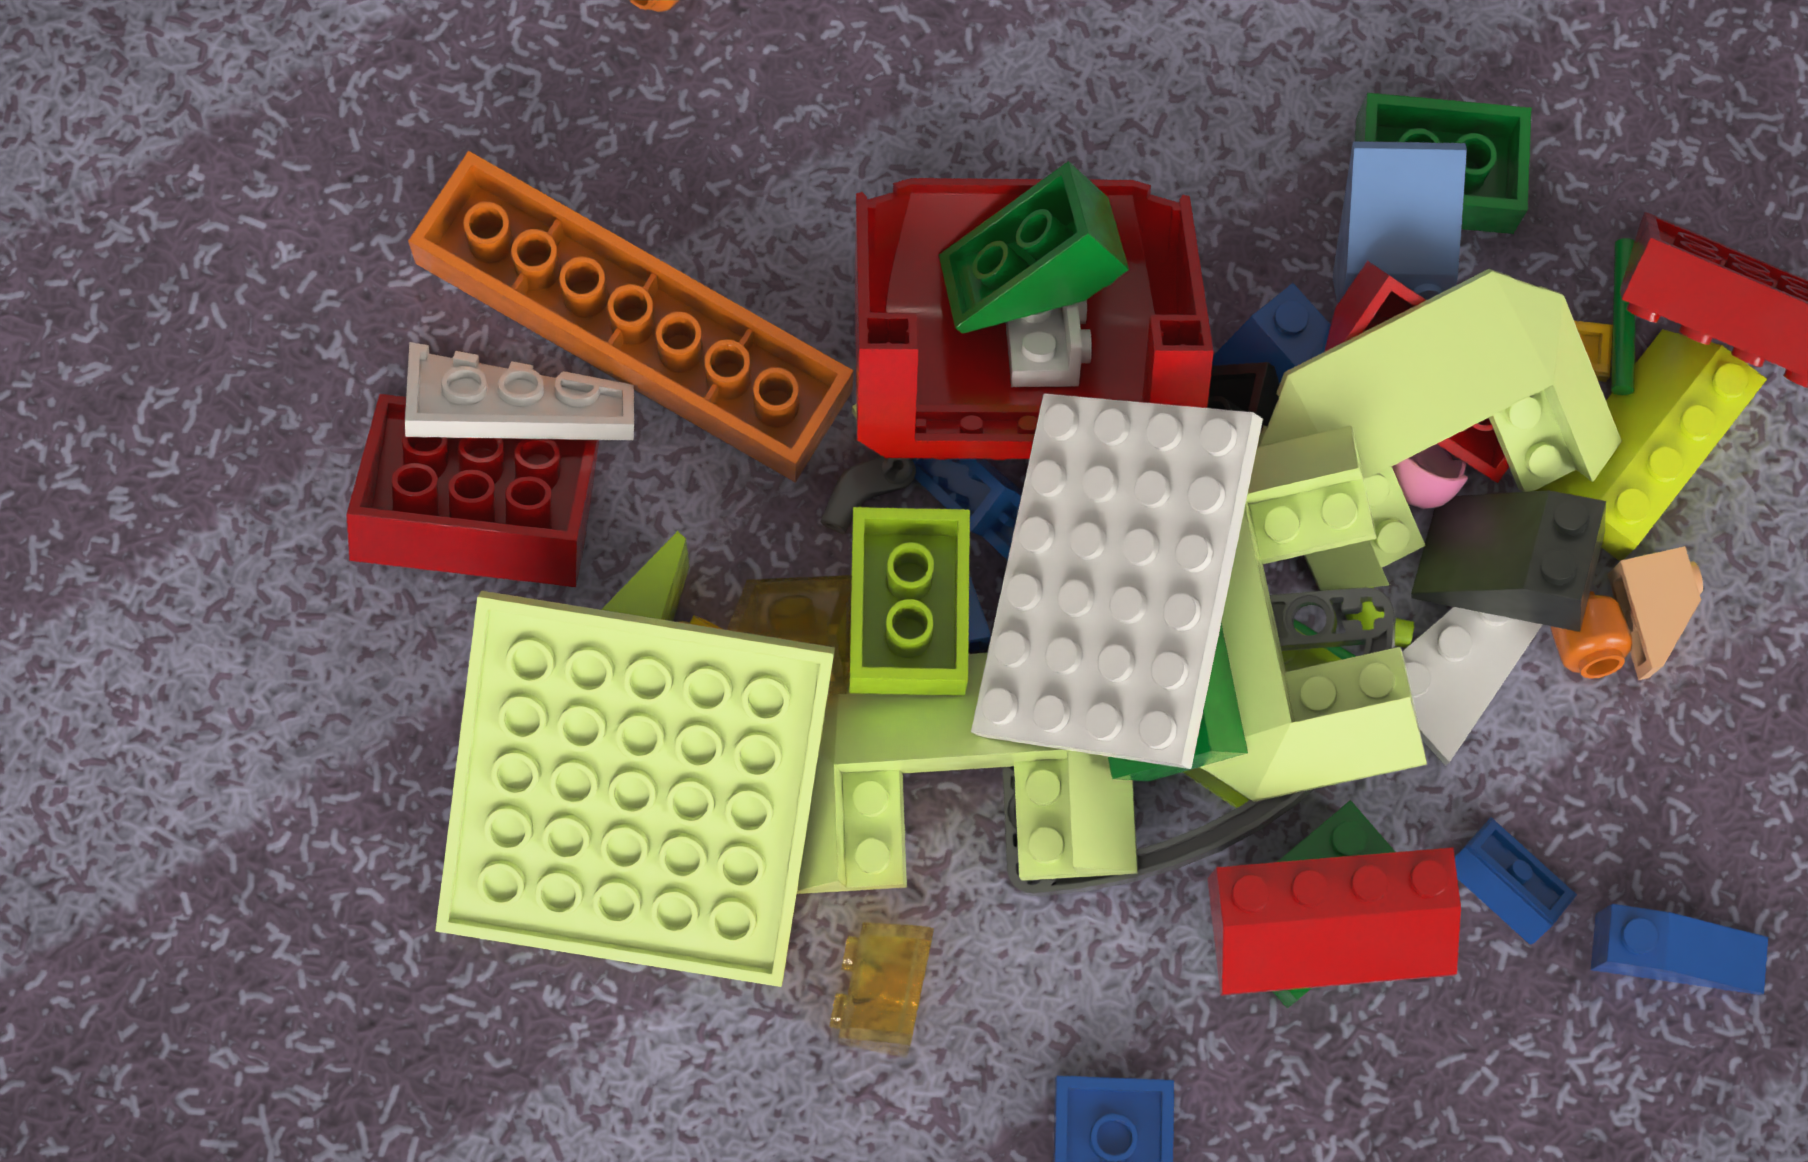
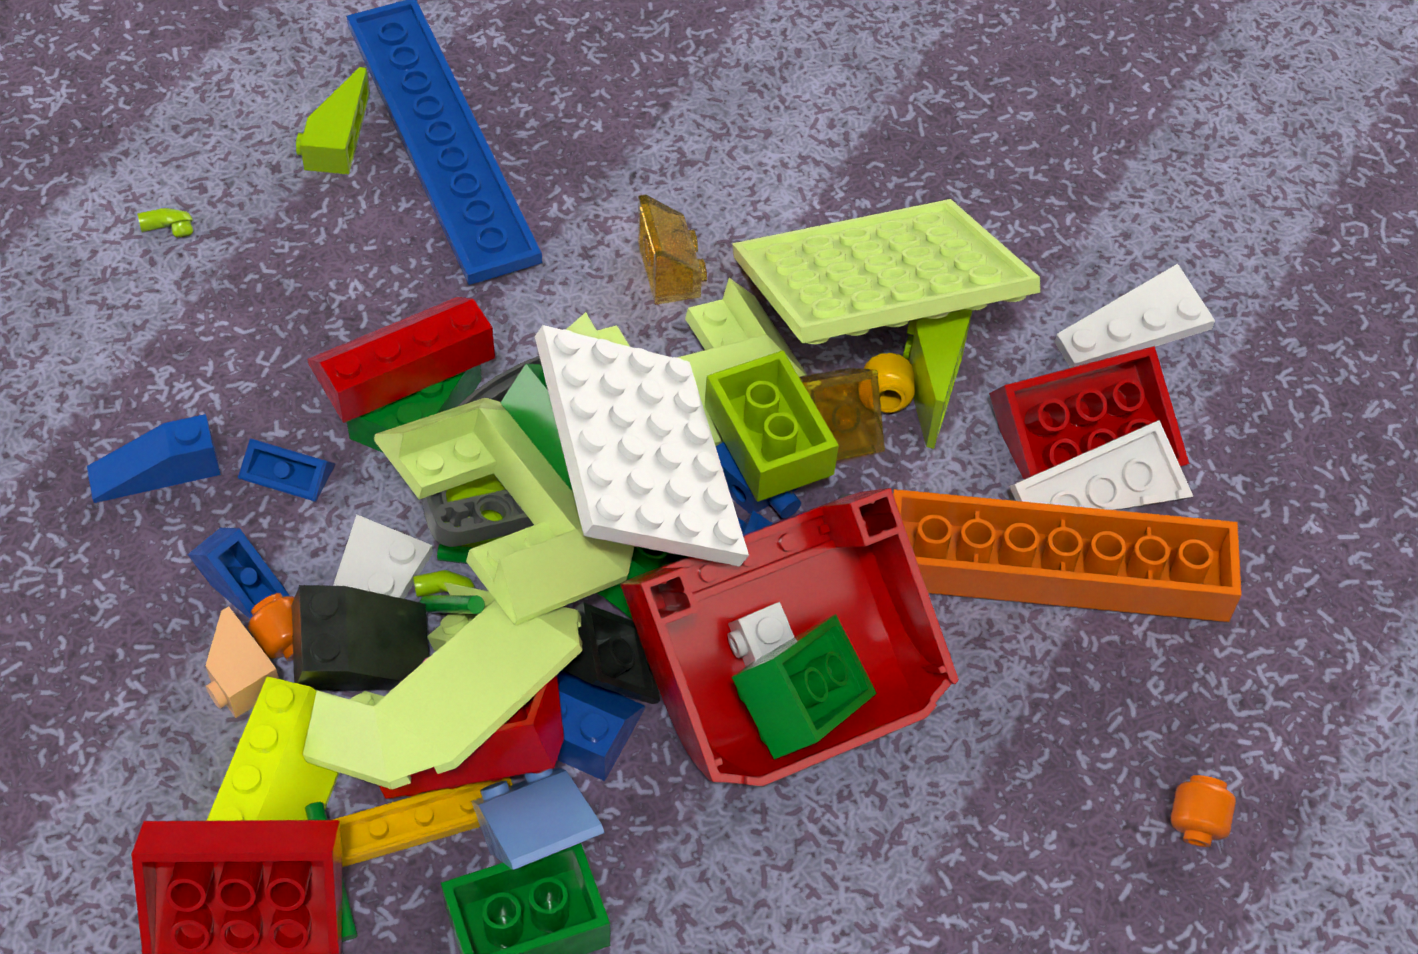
camera: 160 degrees right, 20 degrees down
(290, 625) = (1143, 318): none -> white wing
(1394, 542) = (453, 604): none -> green bar
(1623, 734) = (235, 569): none -> blue slope

